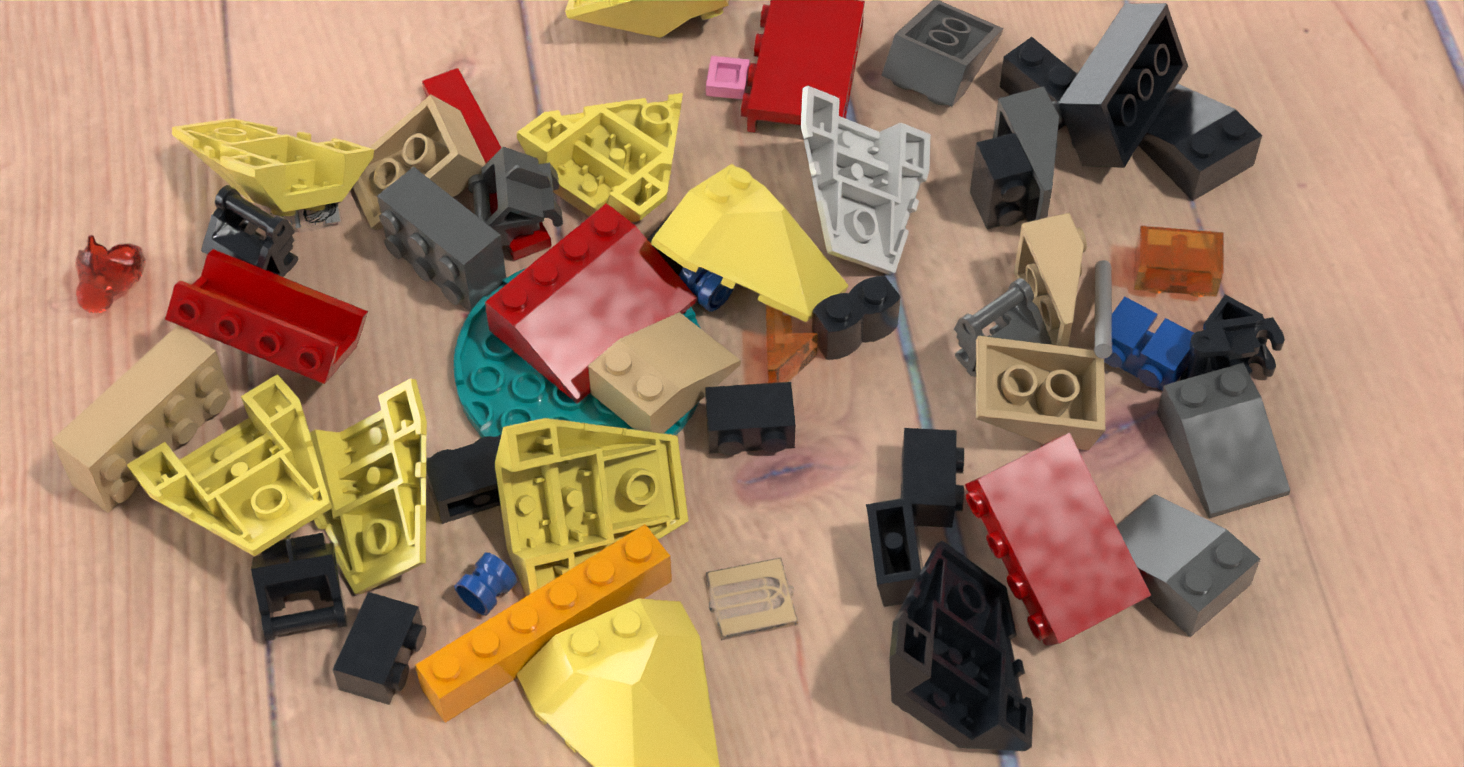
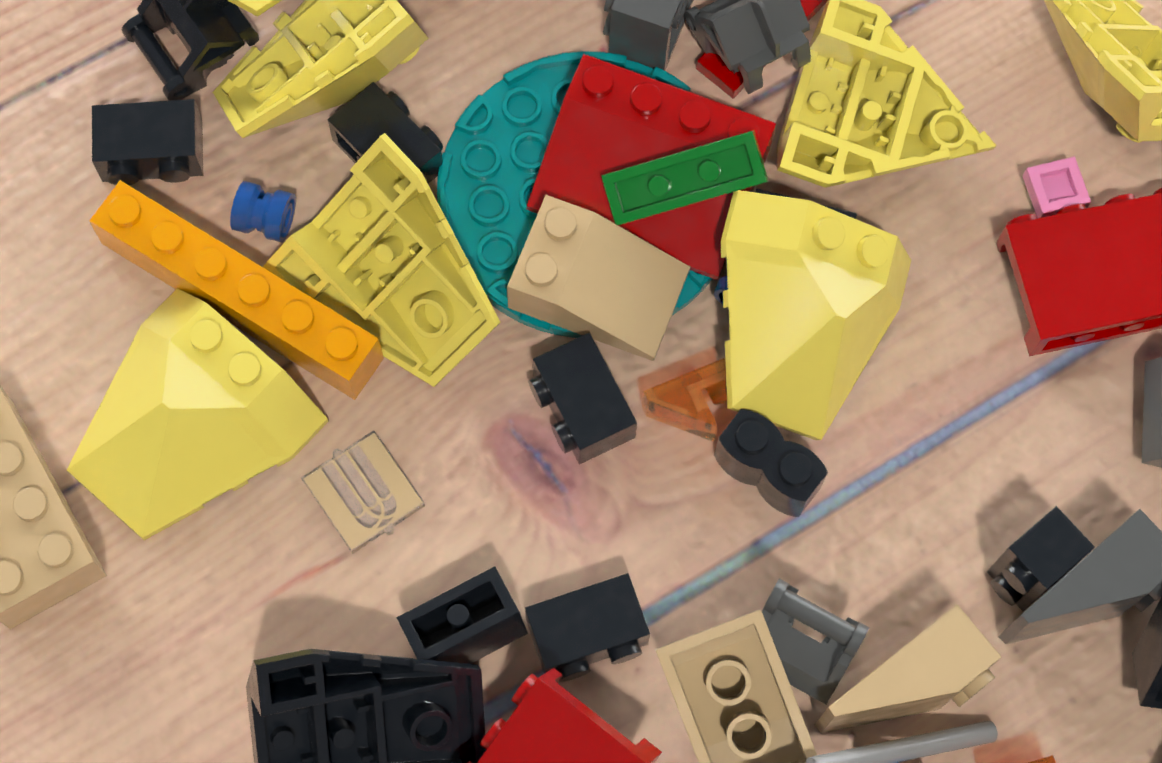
camera: 65 degrees right, 15 degrees up
(622, 272) = (685, 178): none -> green plate
(862, 181) = (959, 394): white wedge -> none

